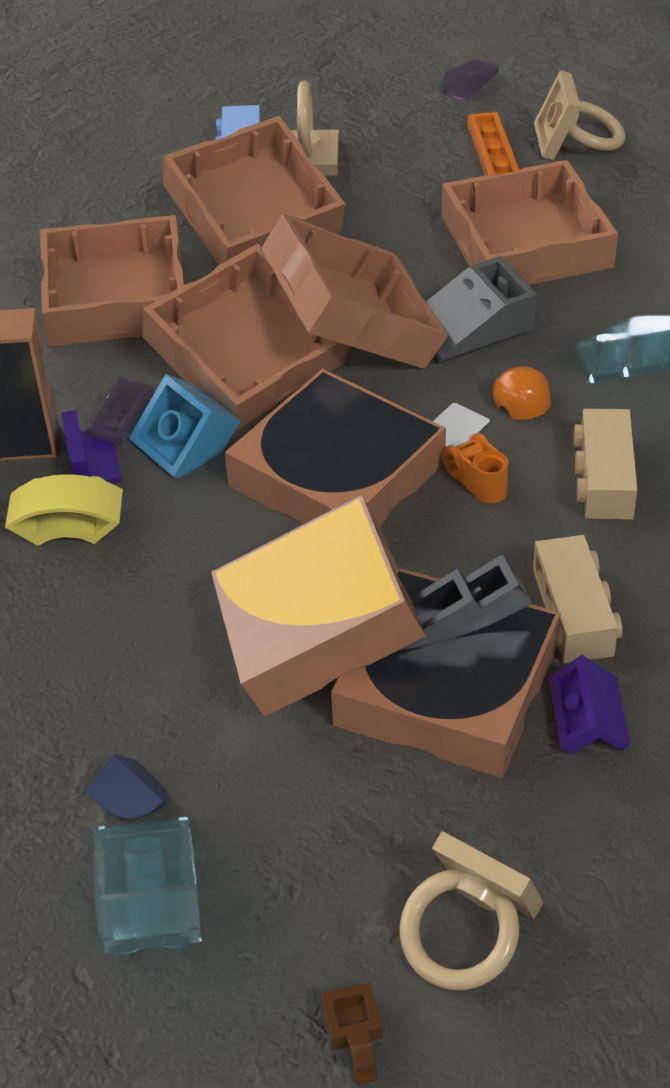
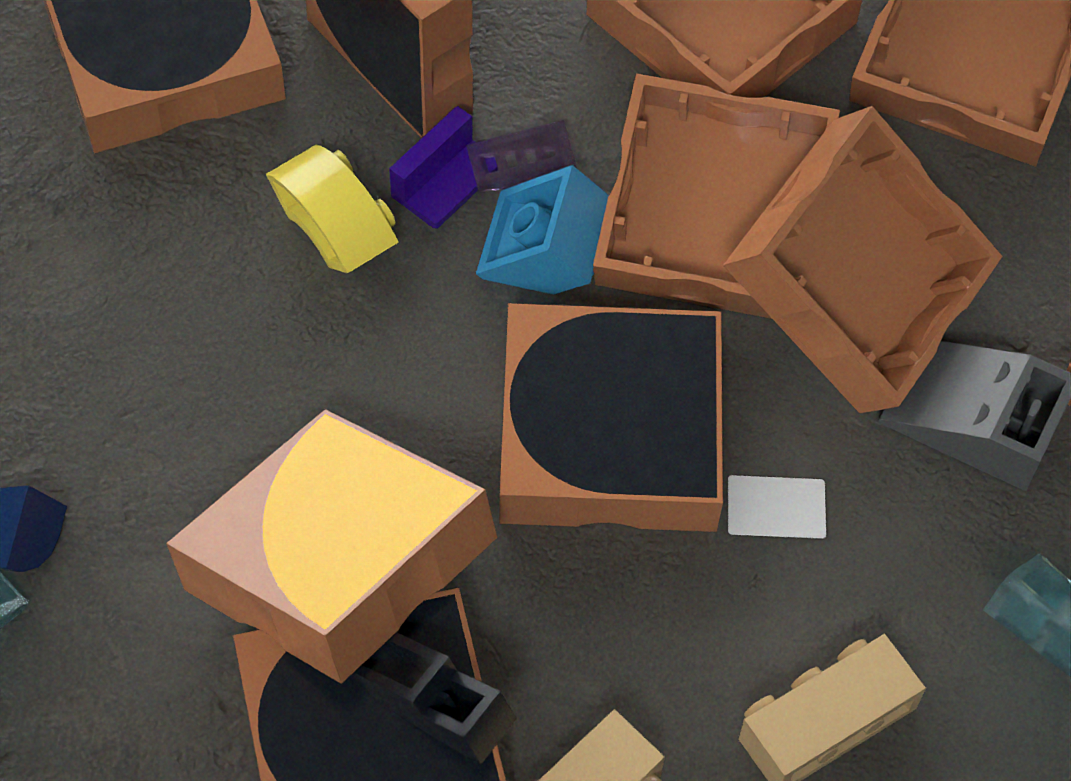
camera: 50 degrees right, 15 degrees up
(478, 468) = (717, 568): orange piece -> none
(522, 392) = (890, 547): orange hair -> none

